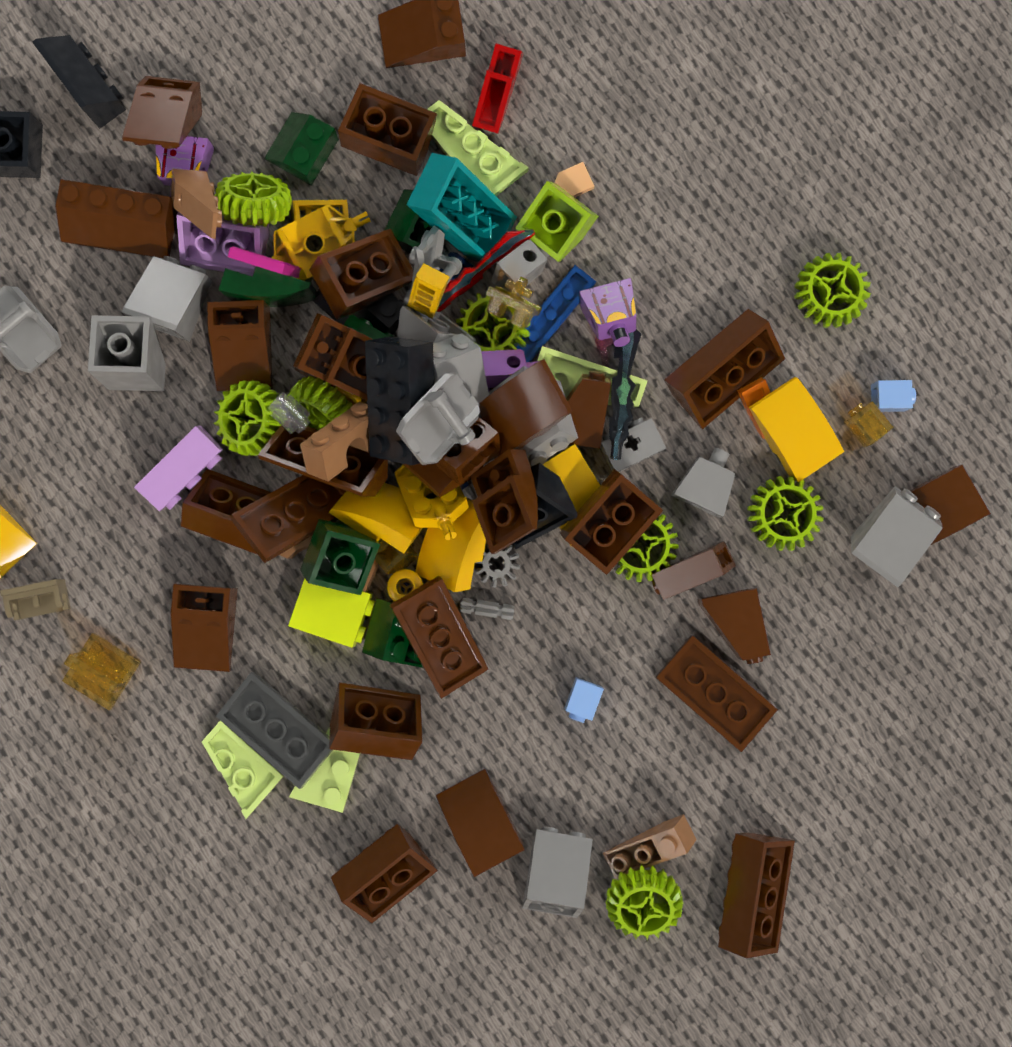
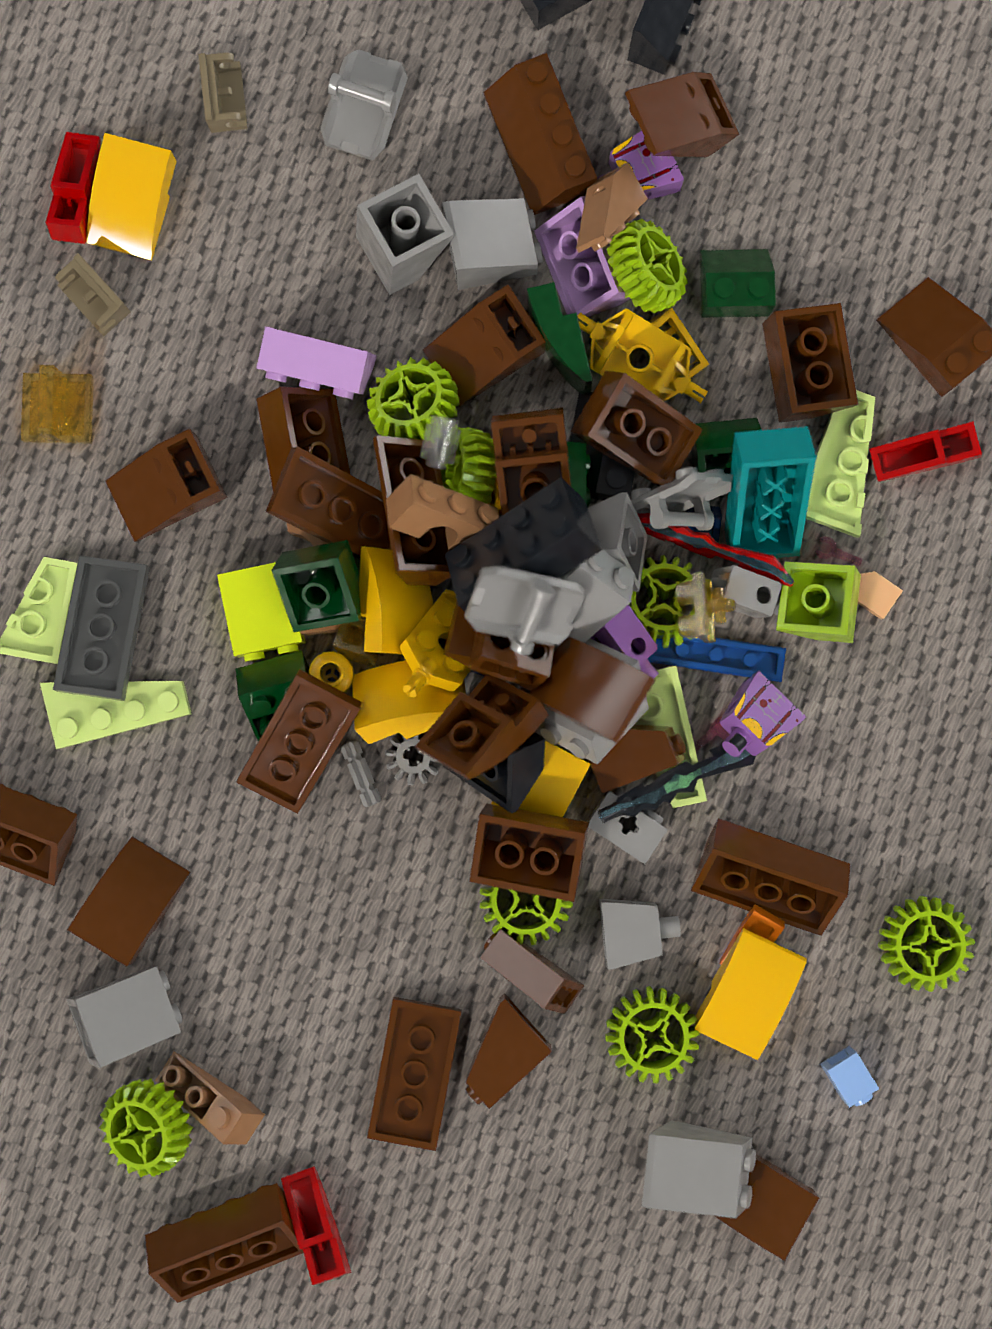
camera: 60 degrees right, 0 degrees up
(264, 262) = (585, 319): dark pink tile -> none
(376, 722) = (170, 728): reddish brown slope -> none
(427, 290) = (657, 510): yellow slope -> none
(529, 191) = (837, 553): none -> clear pink hand
(583, 700) = (323, 934): light blue brick -> none
(780, 824) = (315, 1226): none -> red slope
(867, 423) = (803, 1067): clear yellow brick -> none

